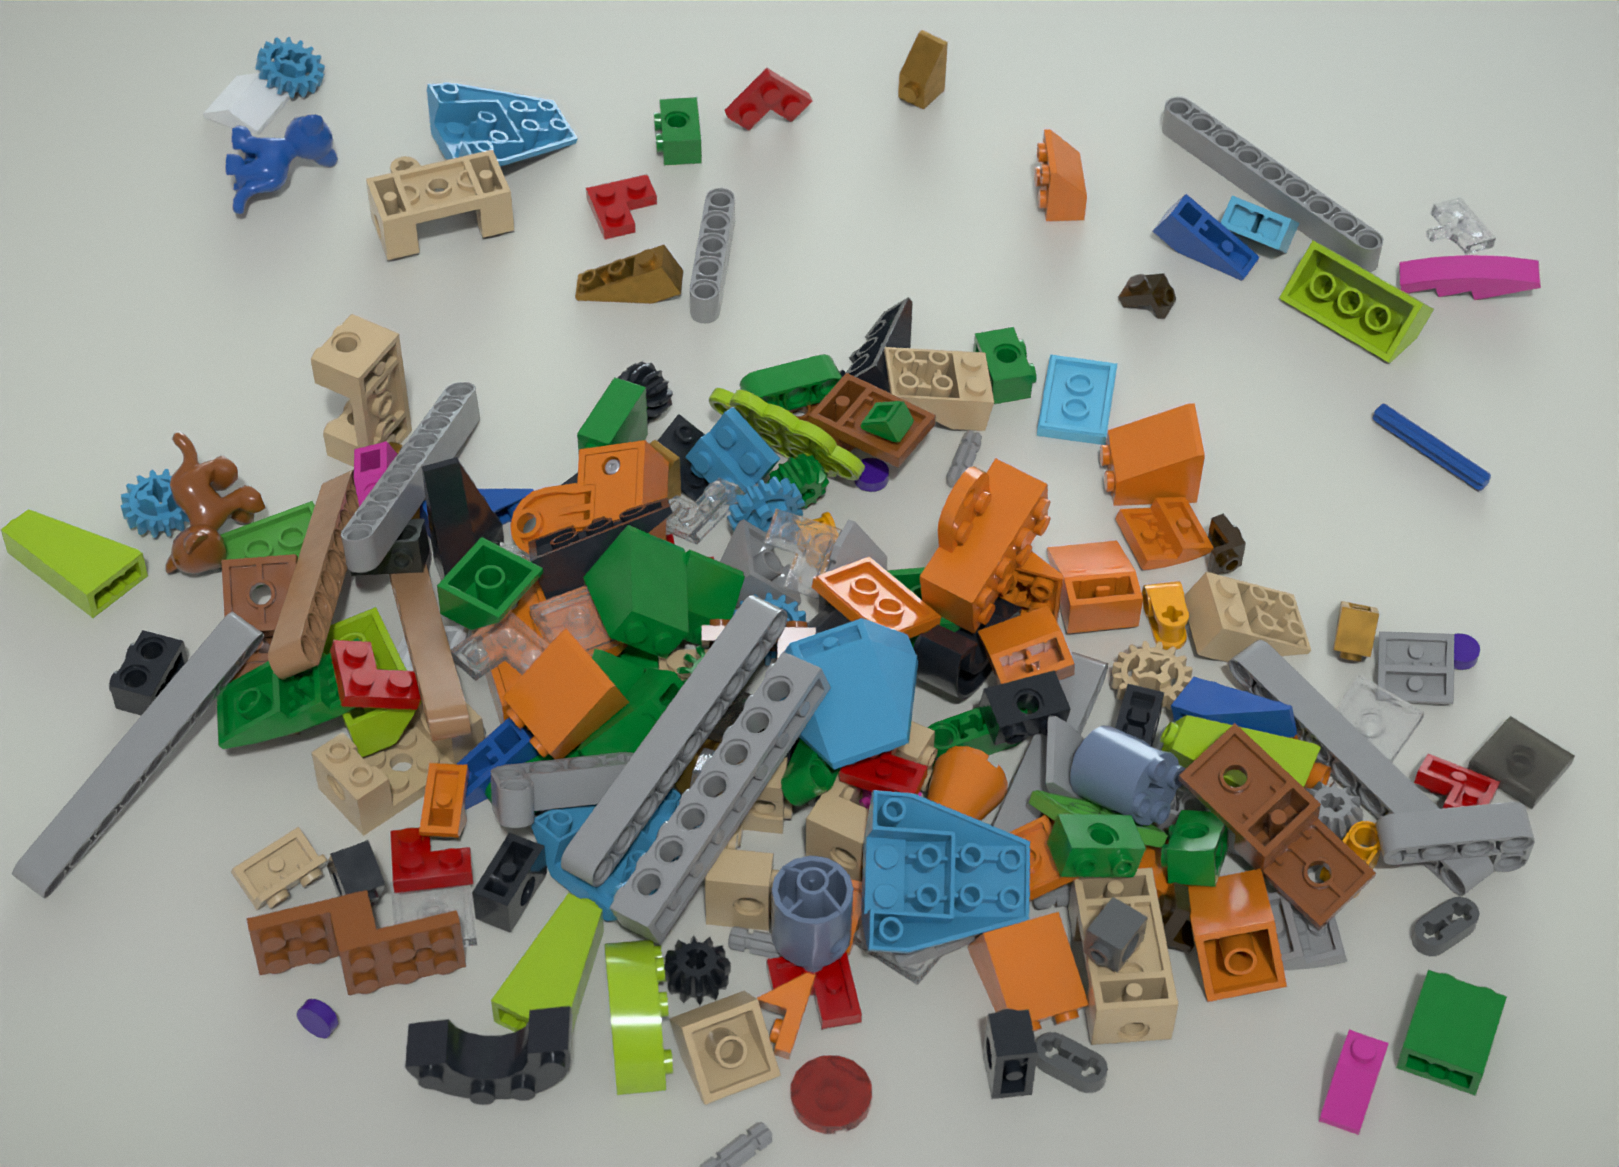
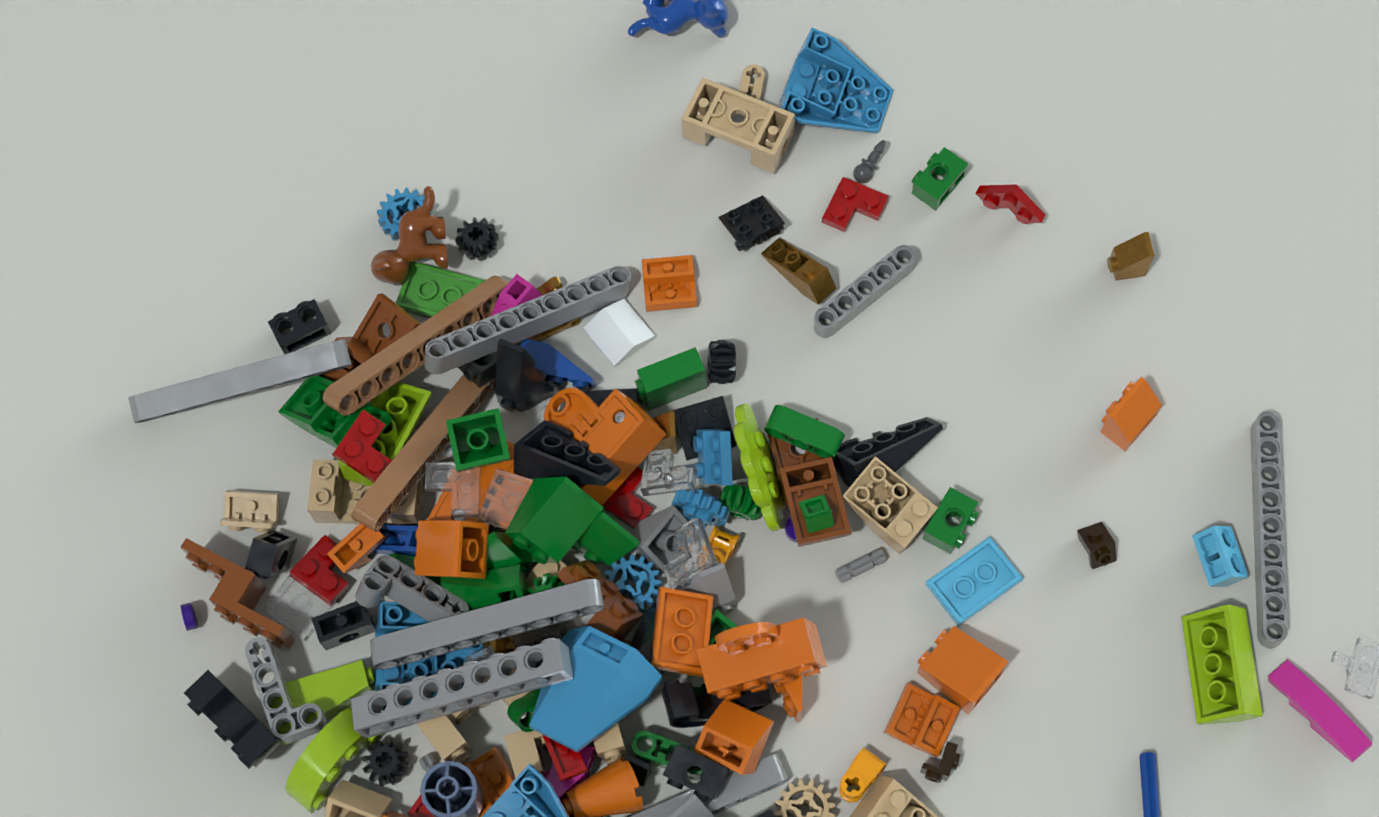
camera: 50 degrees right, 20 degrees up
(74, 561) = (328, 220): lime slope -> none
(267, 469) = (468, 243): none -> black gear
(368, 368) = (550, 244): tan plate -> none
(462, 966) = (278, 688): none -> light grey beam
(506, 450) = (618, 332): none -> white slope
(512, 377) = (669, 283): none -> orange slope
(541, 275) = (752, 221): none -> black hinge
(599, 165) = (864, 172): none -> dark grey bar
(1097, 586) = (839, 718): orange slope -> none
(1204, 239) = (1176, 537): blue slope -> none

